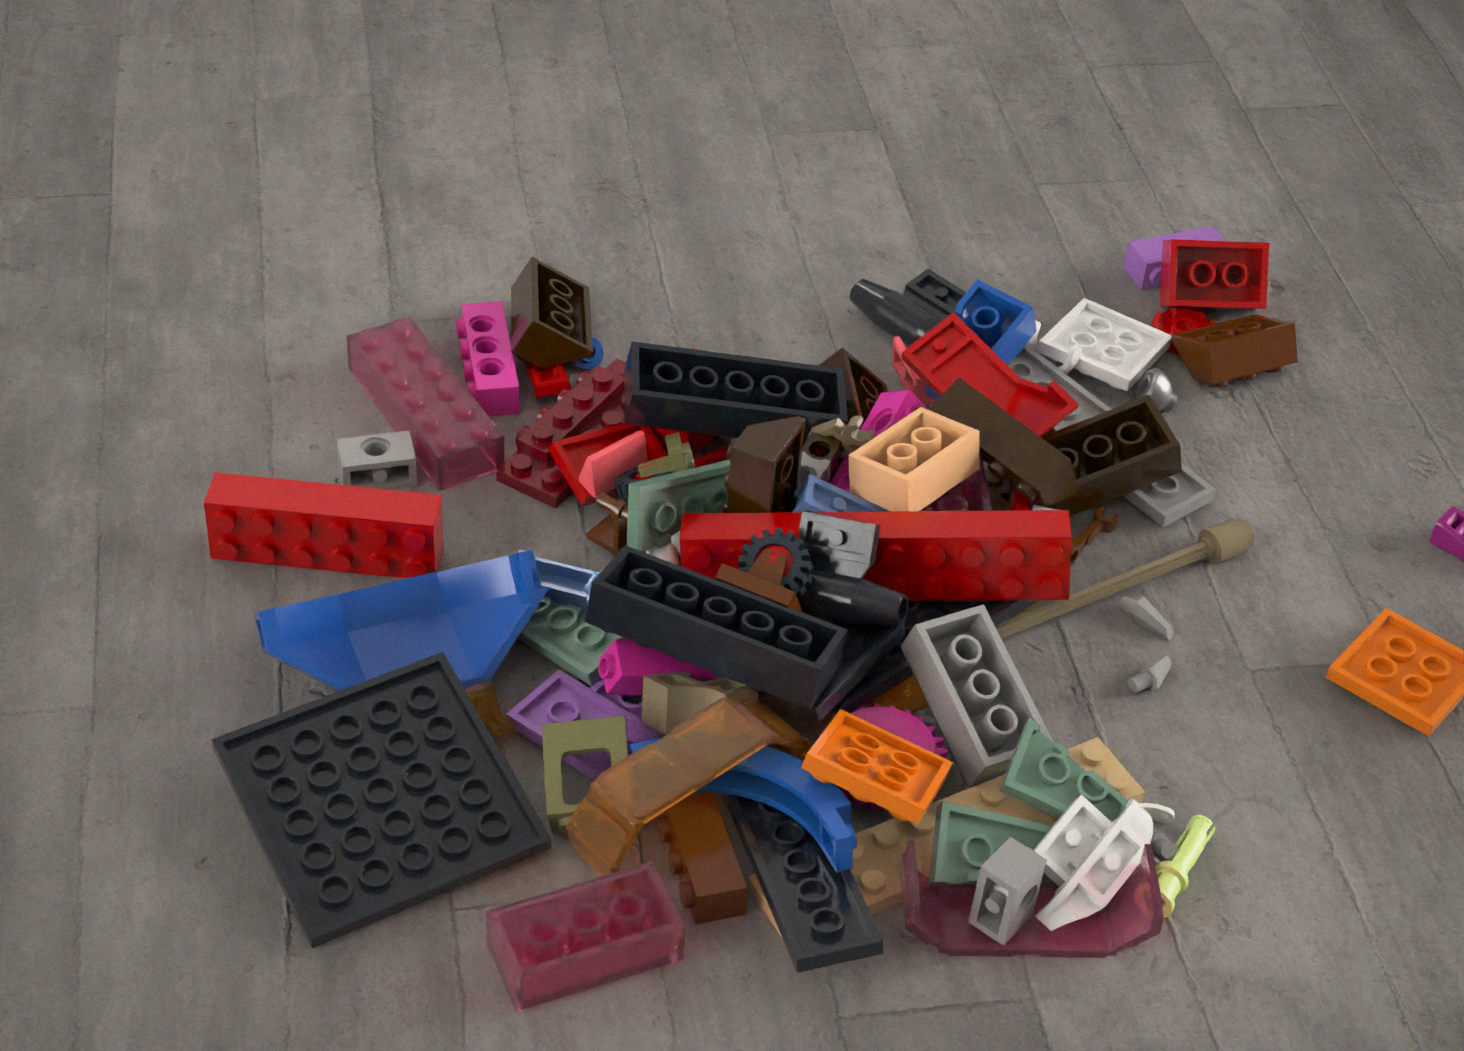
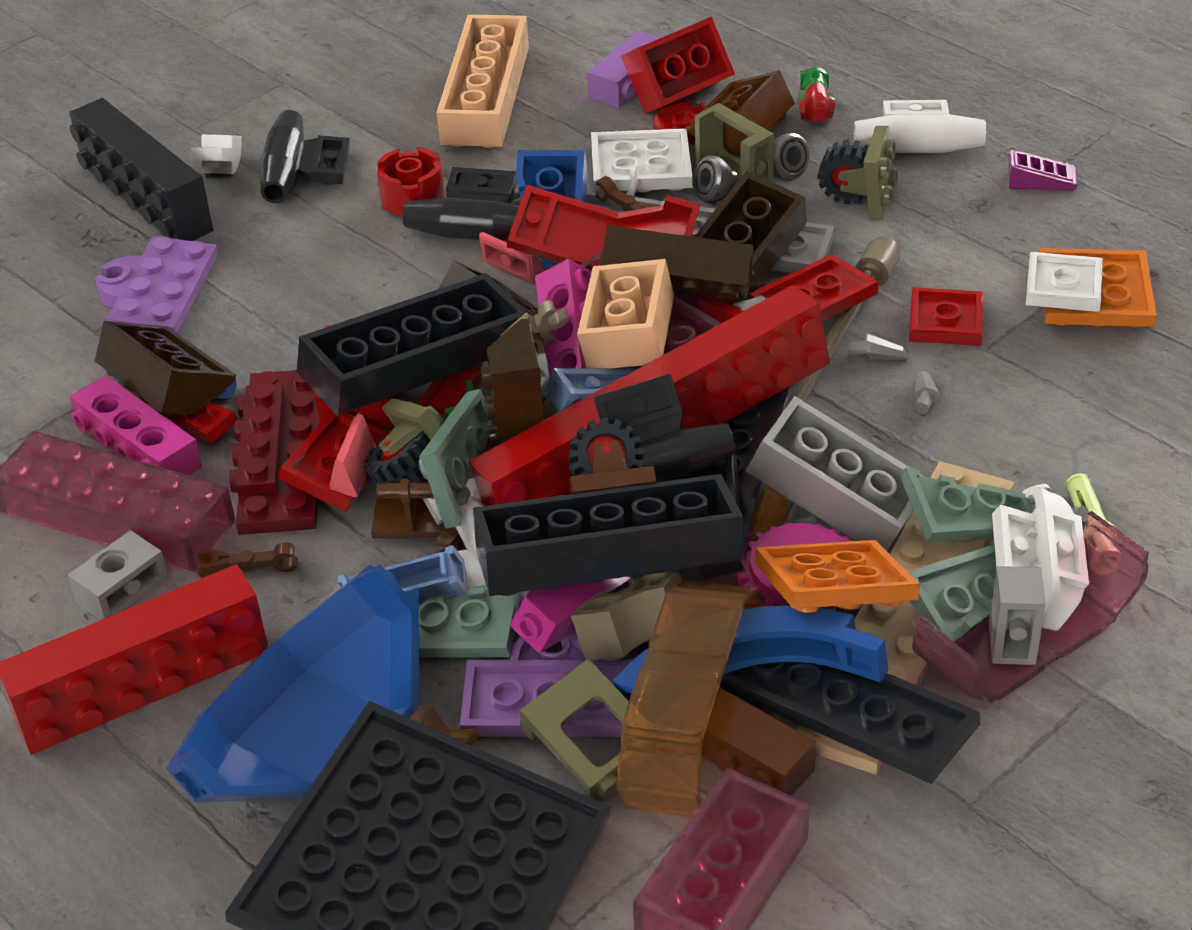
camera: 30 degrees left, 0 degrees up
(460, 493) = (281, 558): none -> reddish brown piece
(616, 249) = (158, 284): none -> medium lavender plate
(678, 150) = (141, 171): none -> black brick
(760, 164) = (218, 153): none -> white brick
(819, 194) = (289, 154): none -> black plate
(886, 259) = (408, 178): none -> red brick
(1034, 206) = (483, 81): none -> light nougat brick
(1041, 357) = (610, 191): none -> reddish brown piece
(1127, 536) = (829, 282): none -> red plate
(1194, 385) = (756, 150): none -> olive window
(1241, 407) = (790, 155): none -> flat silver brick
(1241, 622) = (946, 316): none -> red tile
(1288, 456) = (861, 172): none -> olive plate
(1325, 367) = (815, 101): none -> red animal
(1368, 647) = (1064, 281): none -> white plate
(1390, 442) = (923, 127): none -> white plate

